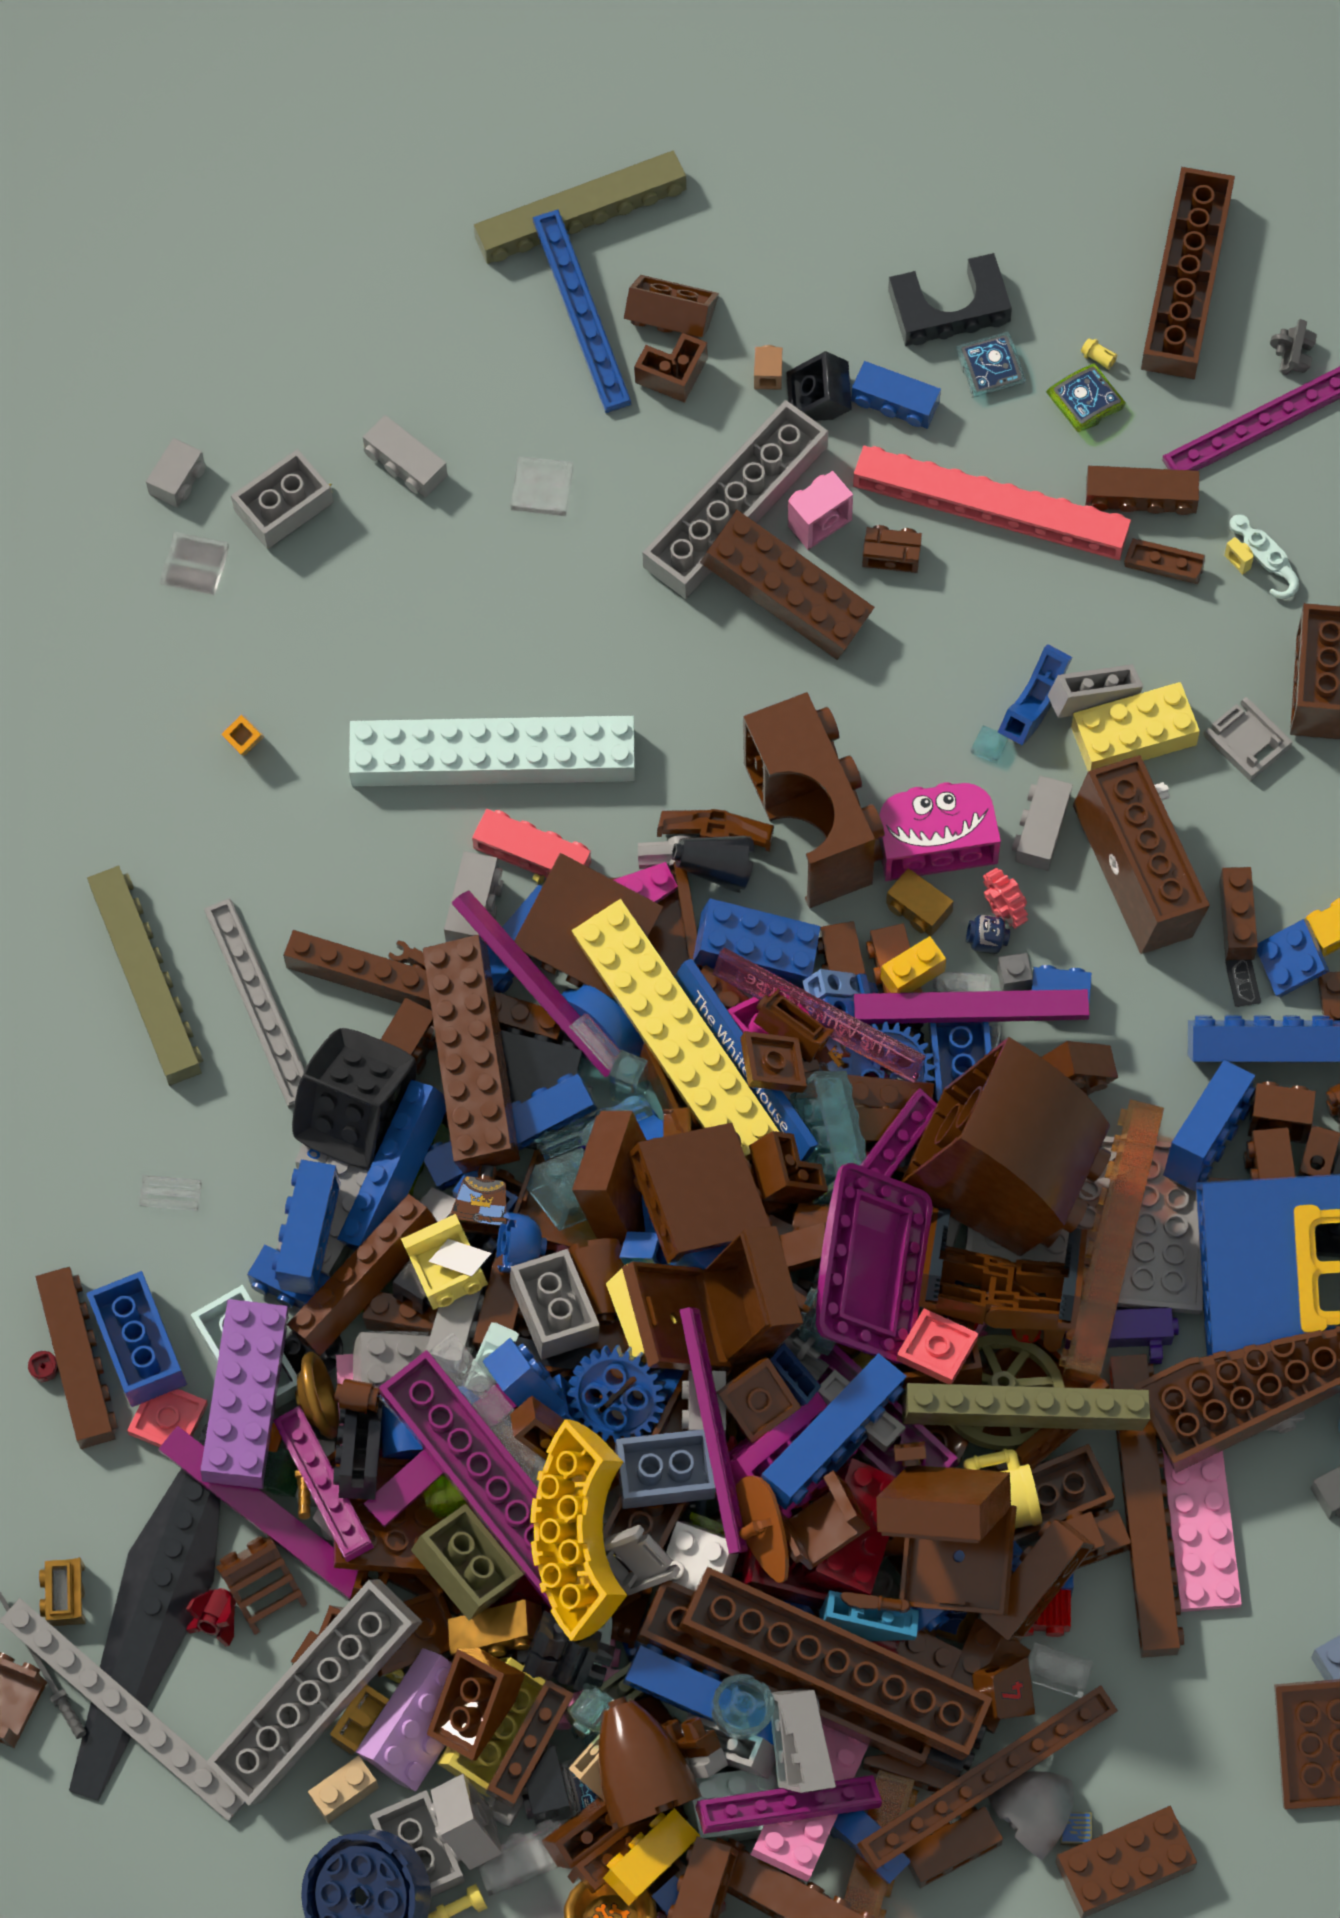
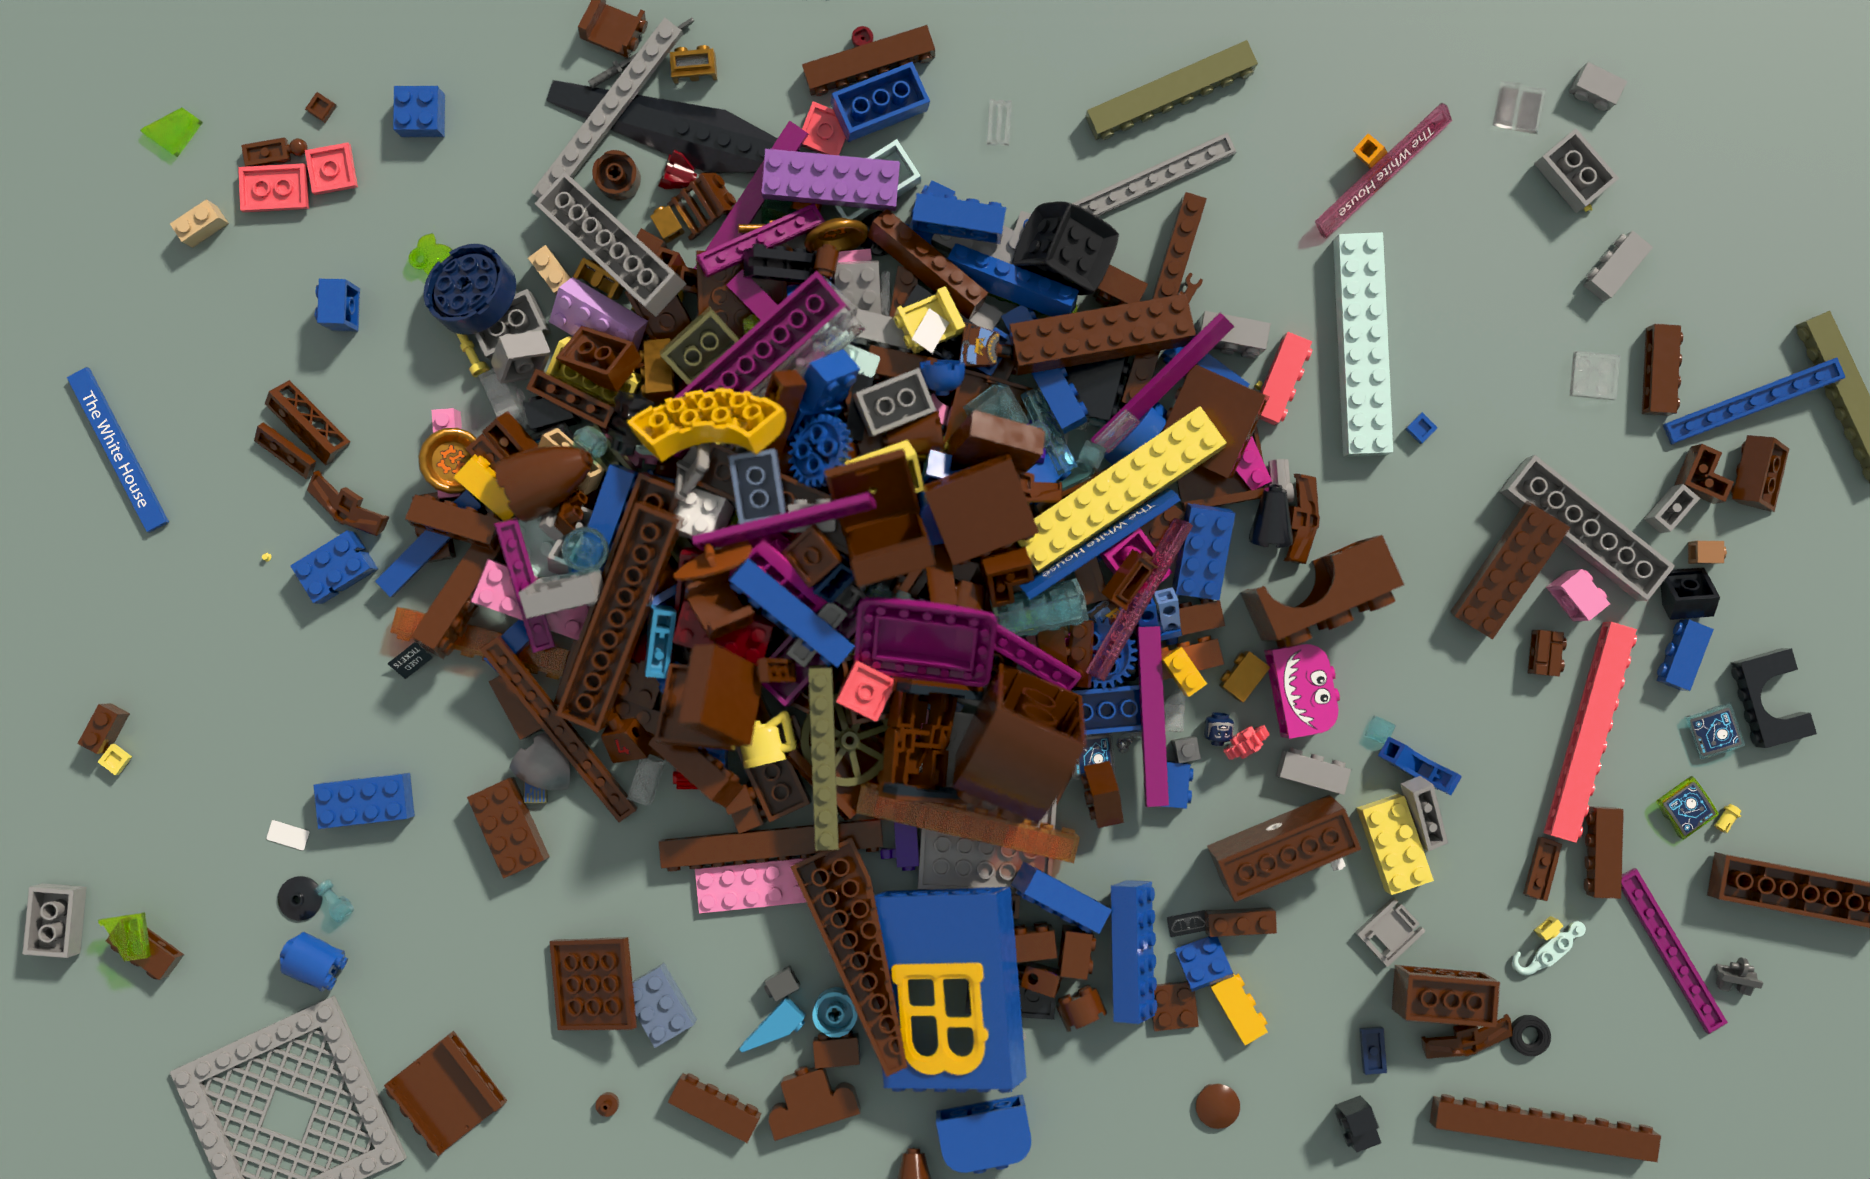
camera: 85 degrees right, 20 degrees up
(202, 1683) = (609, 165): none -> reddish brown brick
(267, 722) = (1383, 170): none -> clear pink tile
(283, 1631) = (667, 223): none -> pearl gold brick
(538, 410) = (1662, 370): none -> reddish brown brick
(602, 686) = (1421, 428): none -> blue plate
(713, 403) = (1671, 508): none -> light grey brick
(773, 1062) = (1093, 564): reddish brown plate -> none
(873, 1602) = (667, 646): reddish brown piece -> none

